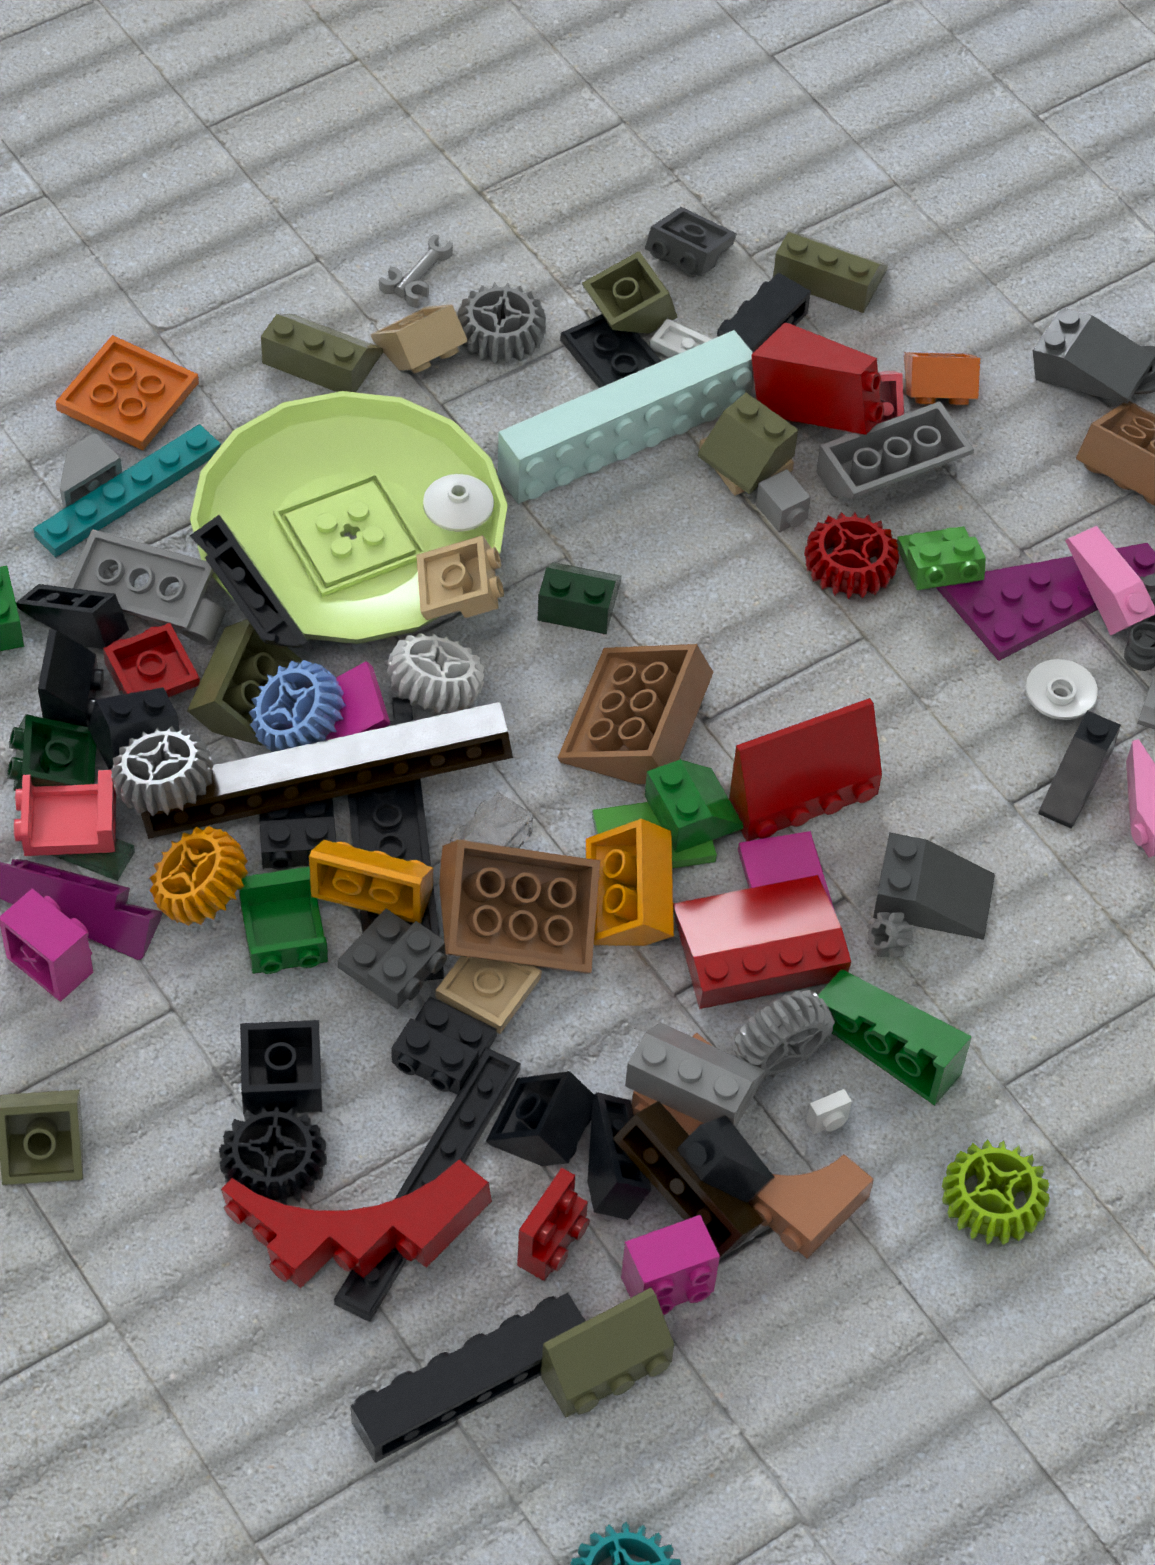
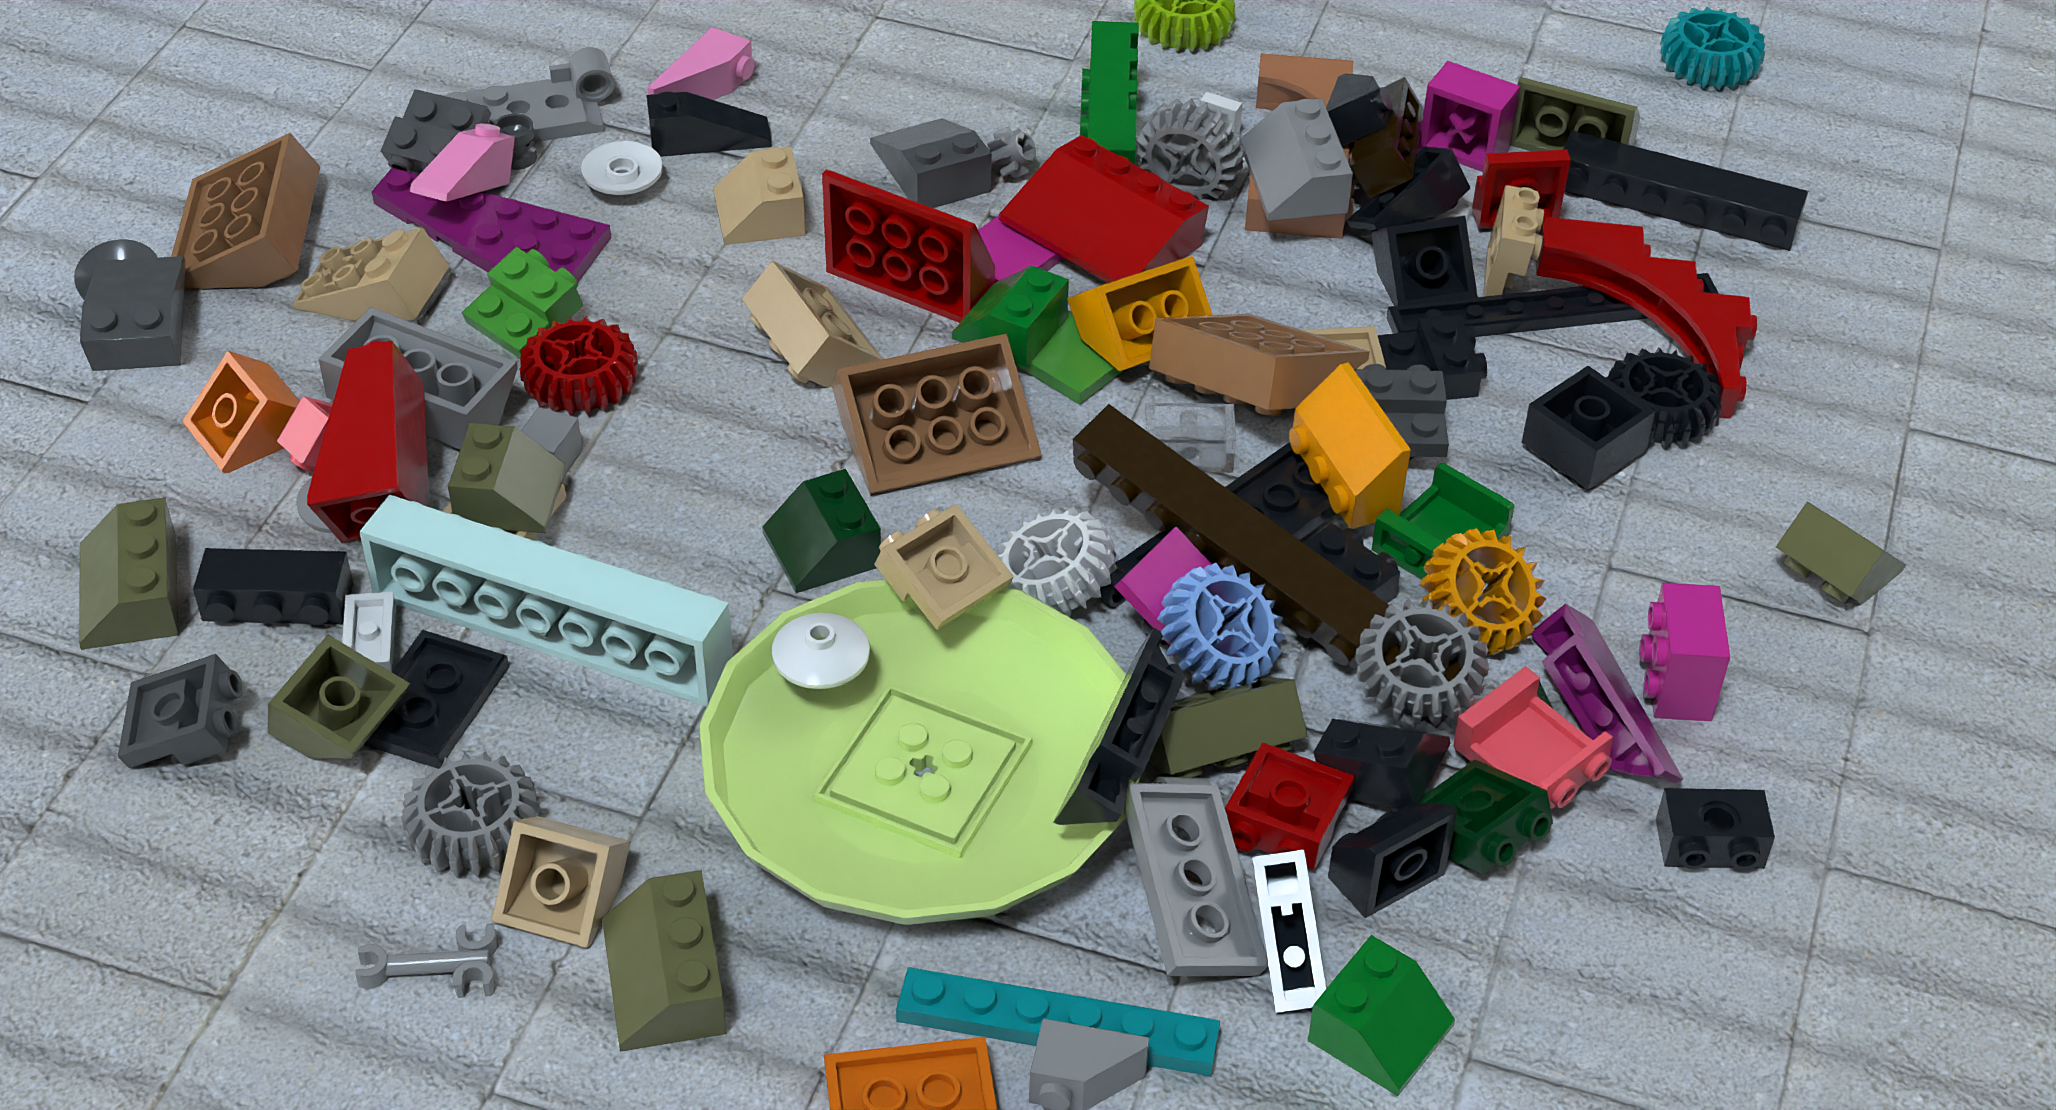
camera: 125 degrees left, 10 degrees down
(498, 1161) = (1513, 239): none -> tan plate
(780, 694) = (806, 325): none -> tan slope
(956, 757) = (761, 198): none -> tan slope
(1034, 496) = (382, 273): none -> tan slope

